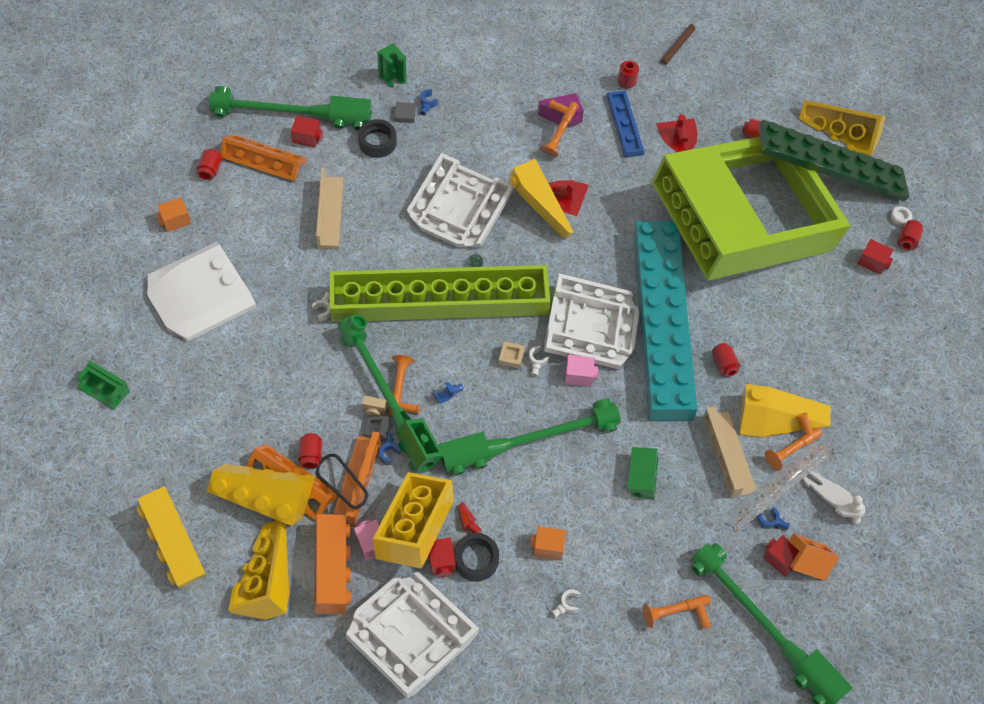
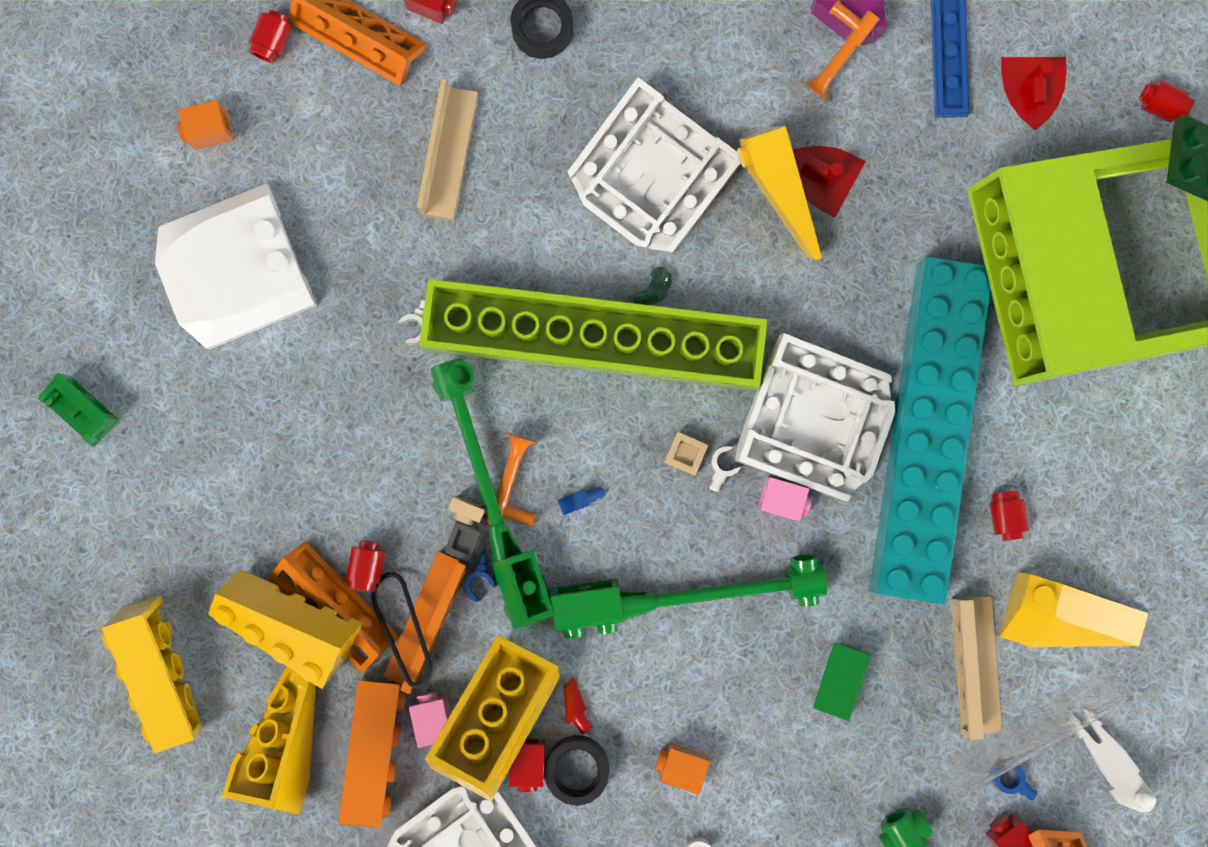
camera: 15 degrees right, 25 degrees up
(775, 458) = (1105, 658): orange piece -> none

